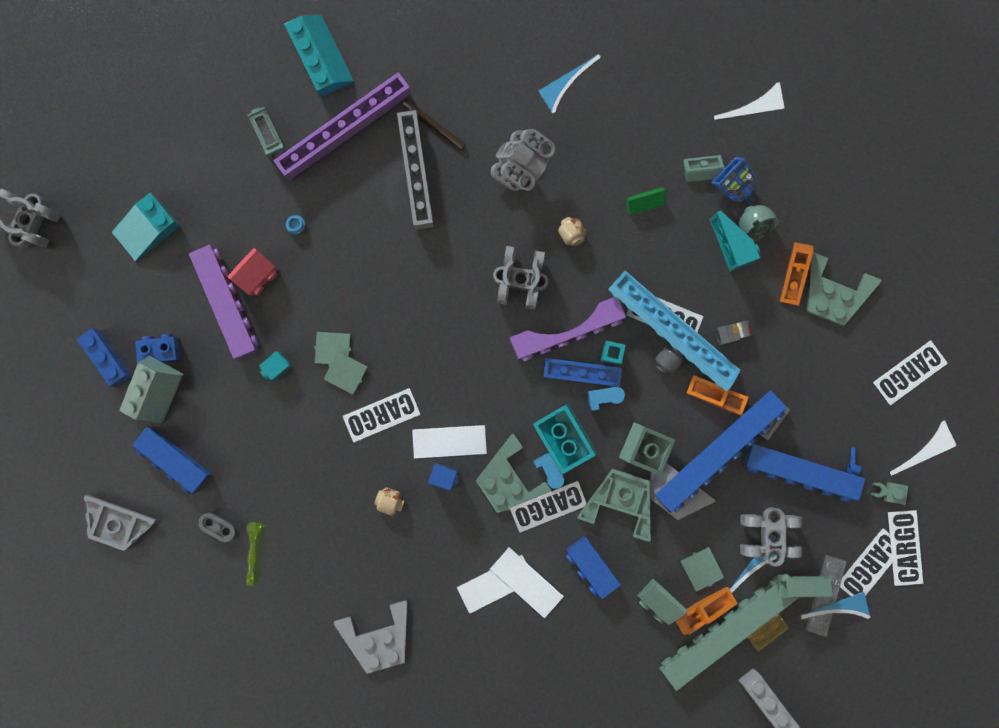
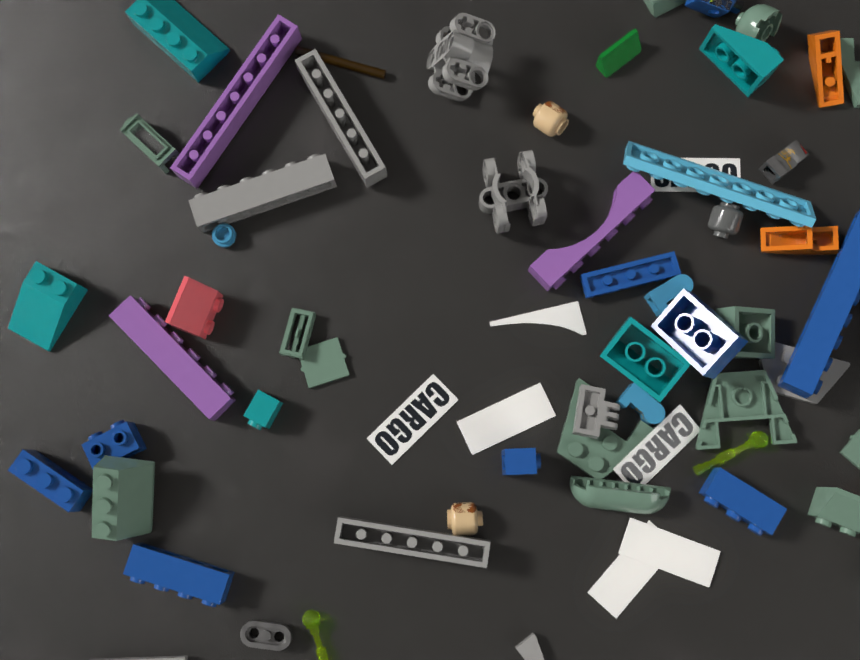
camera: 15 degrees left, 5 degrees down
(331, 319) = (307, 334): none -> sand green tile
(335, 203) = (262, 193): none -> light grey brick
(344, 502) = (412, 541): none -> light grey brick
(345, 372) = (350, 385): sand green piece -> none
(507, 528) = (619, 495): none -> sand green brick
(511, 462) = (593, 412): none -> light grey hinge
(521, 382) = (564, 315): none -> white sticker
(609, 436) = (699, 334): none -> brick
(612, 353) = (657, 237): teal brick -> none
(623, 528) = (756, 440): none -> clear neon green piece

